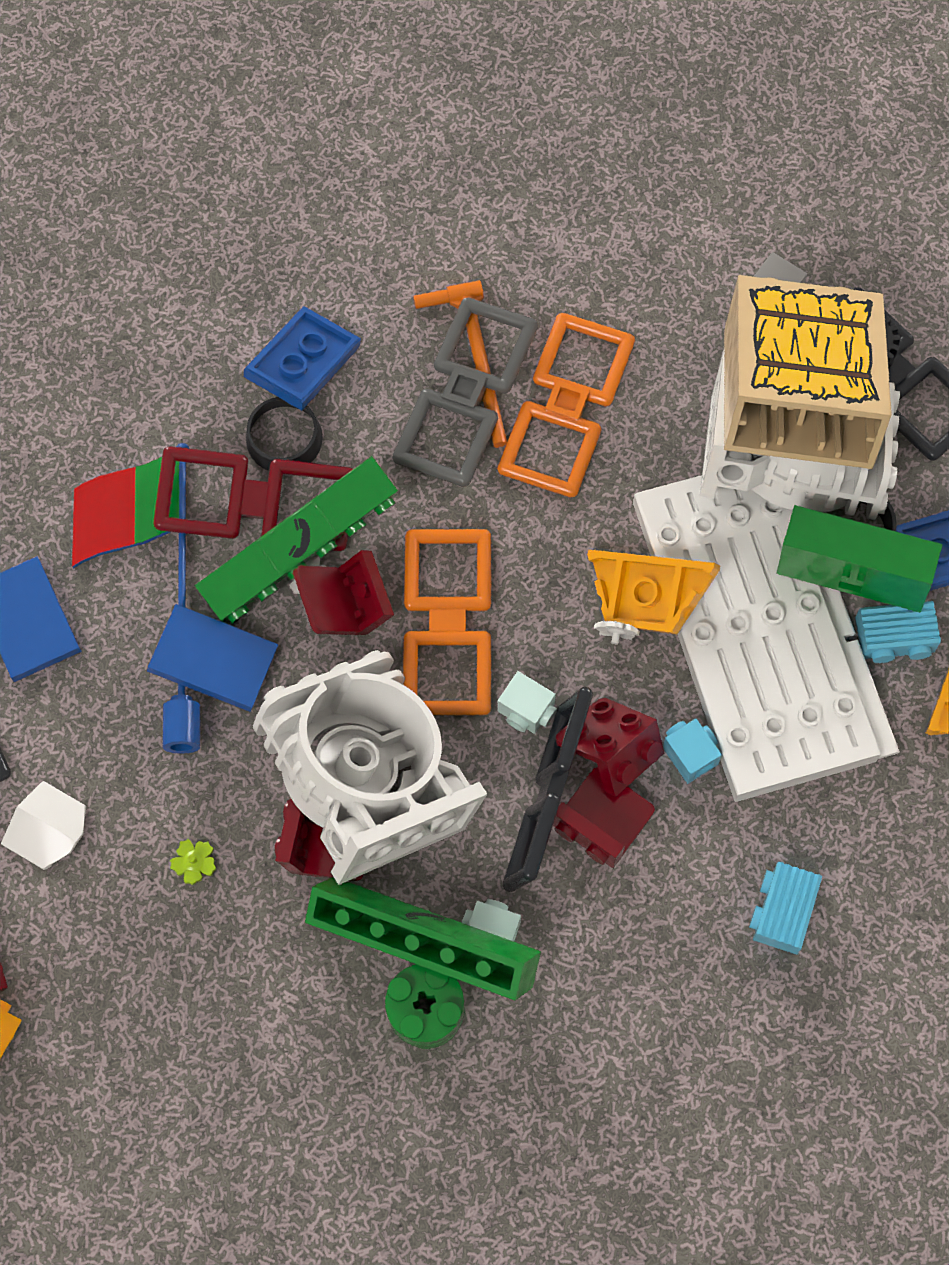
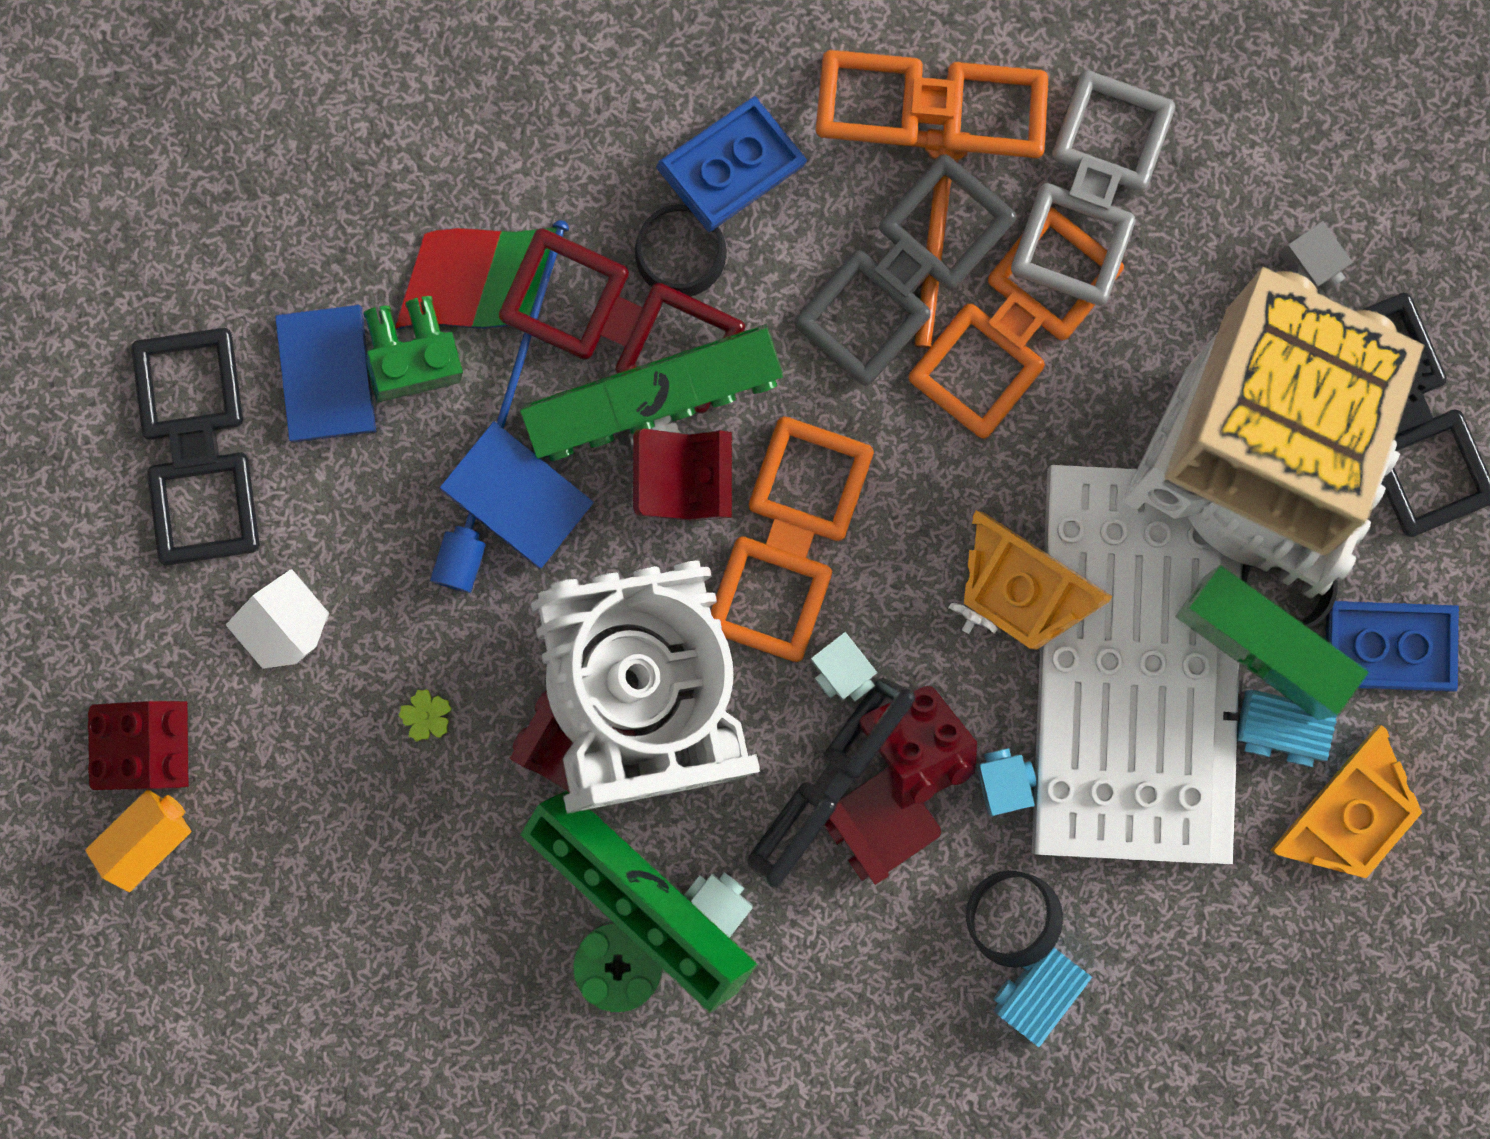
camera: 20 degrees right, 15 degrees up
(95, 584) = (415, 365): none -> green brick
(443, 266) = (932, 103): none -> orange bar
(589, 289) = (1093, 188): none -> light grey bar
(761, 875) = (1045, 941): none -> black tyre

